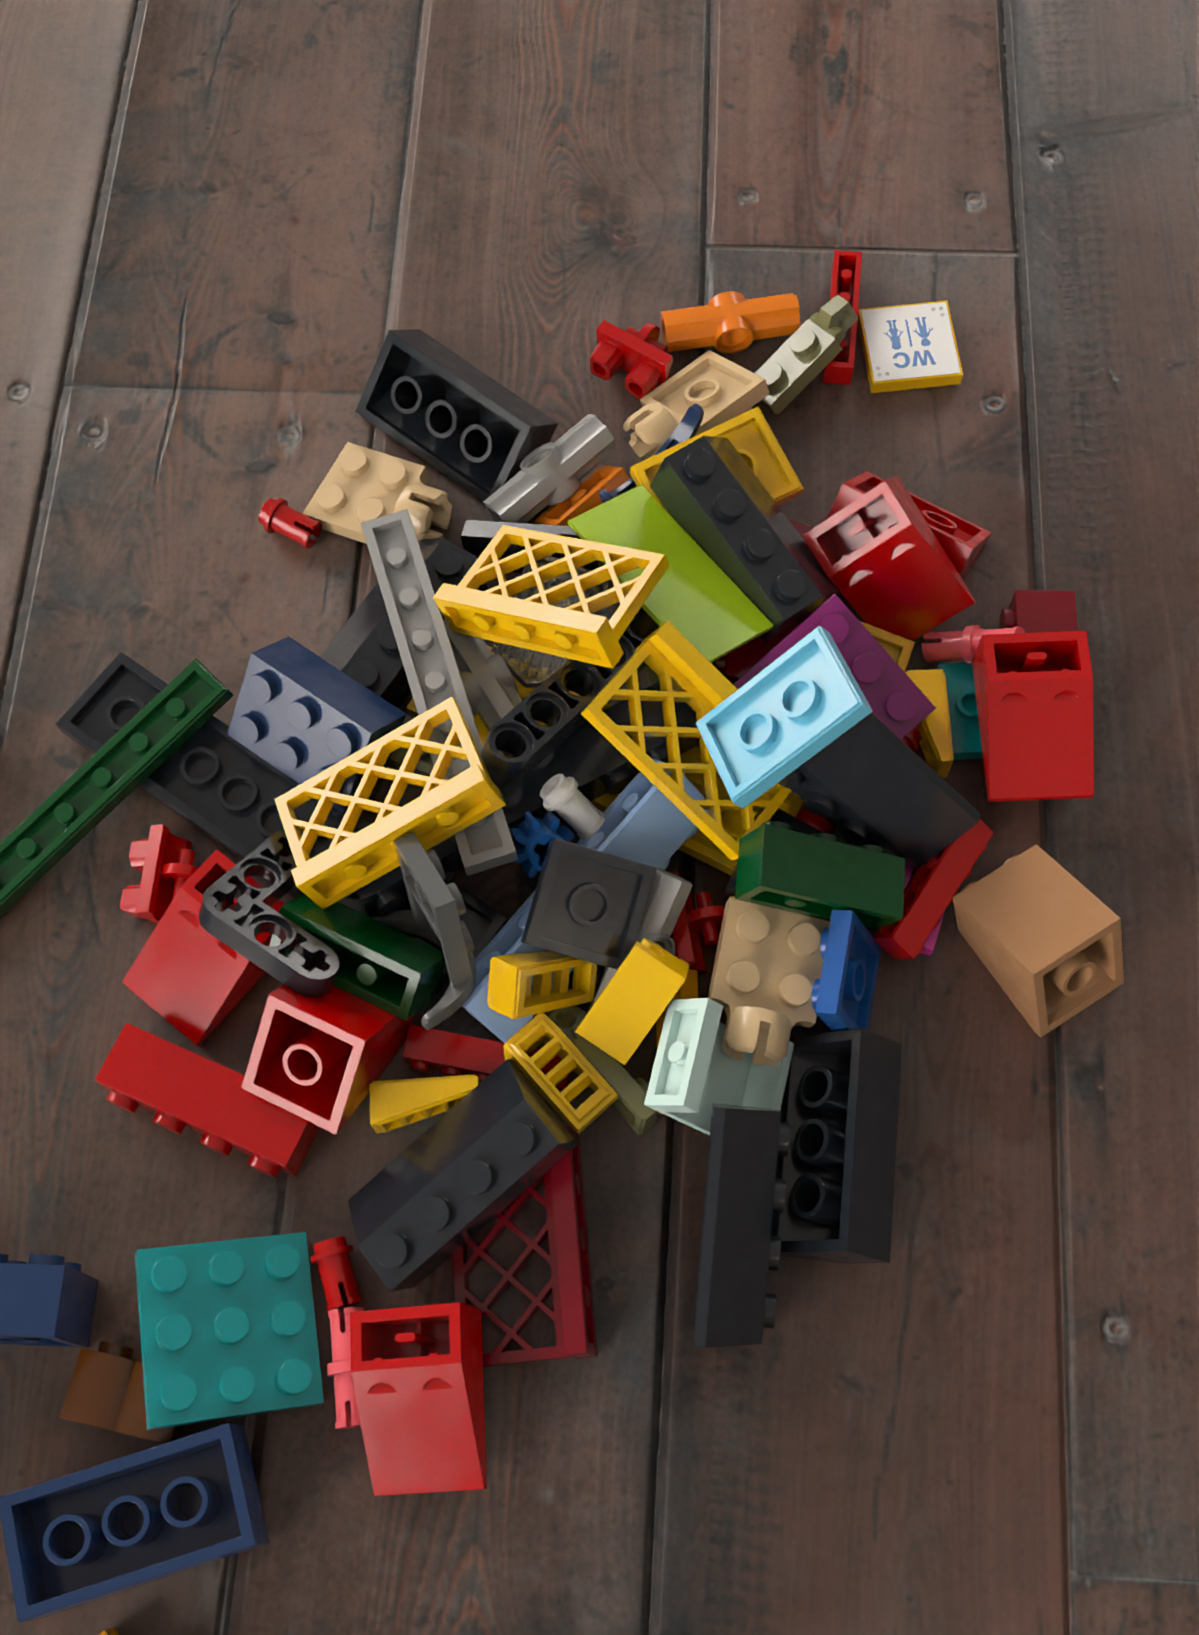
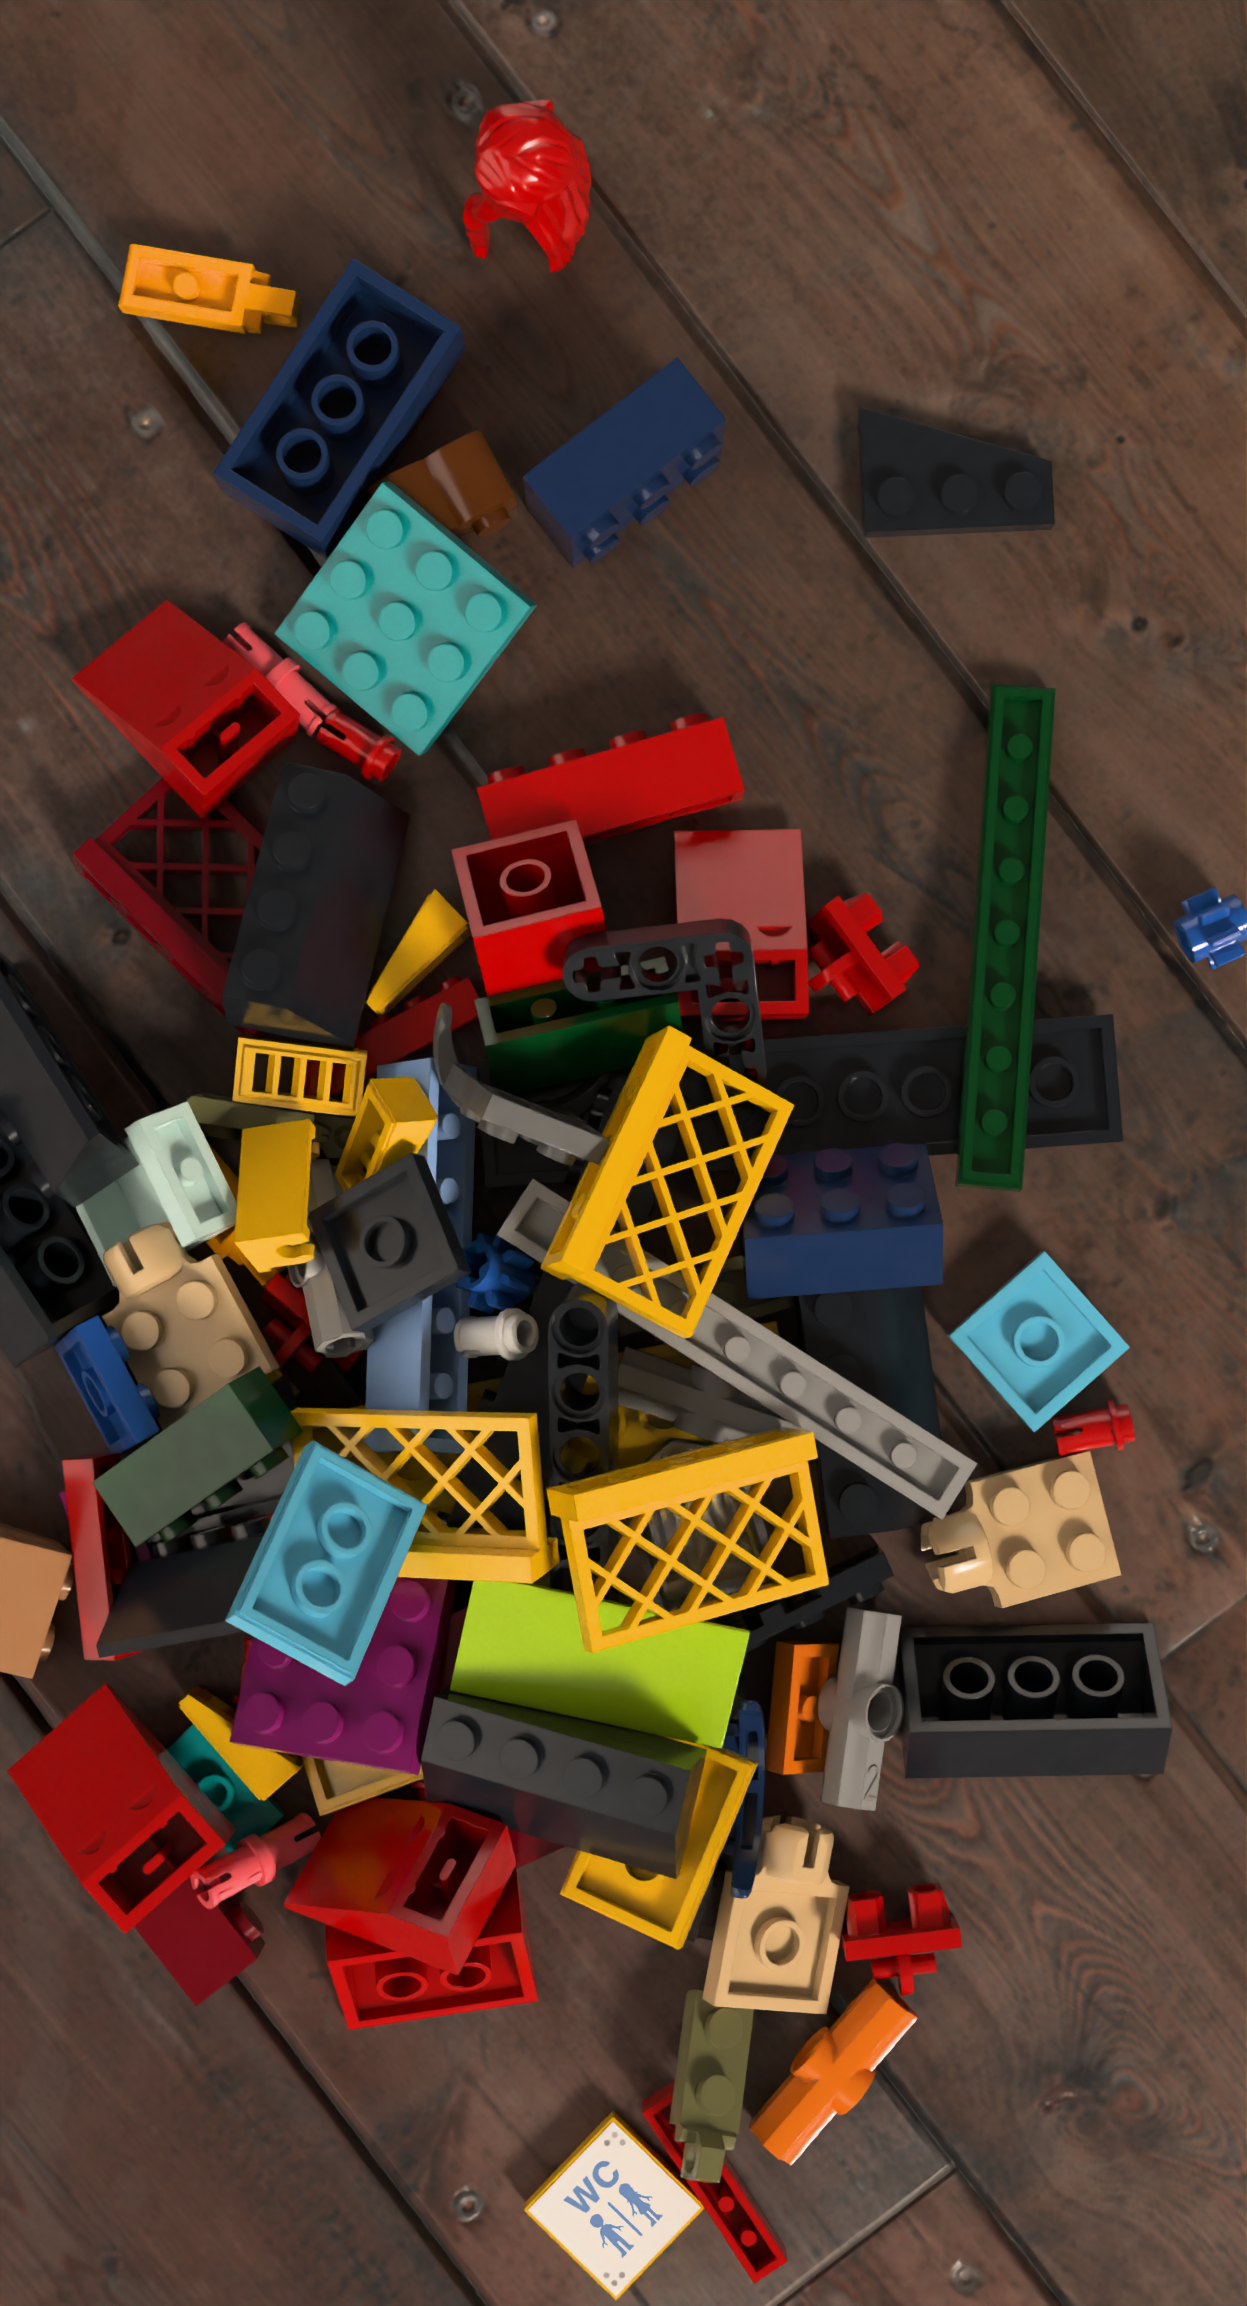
camera: 135 degrees right, 20 degrees up
(273, 589) = (1038, 1341): none -> medium azure plate

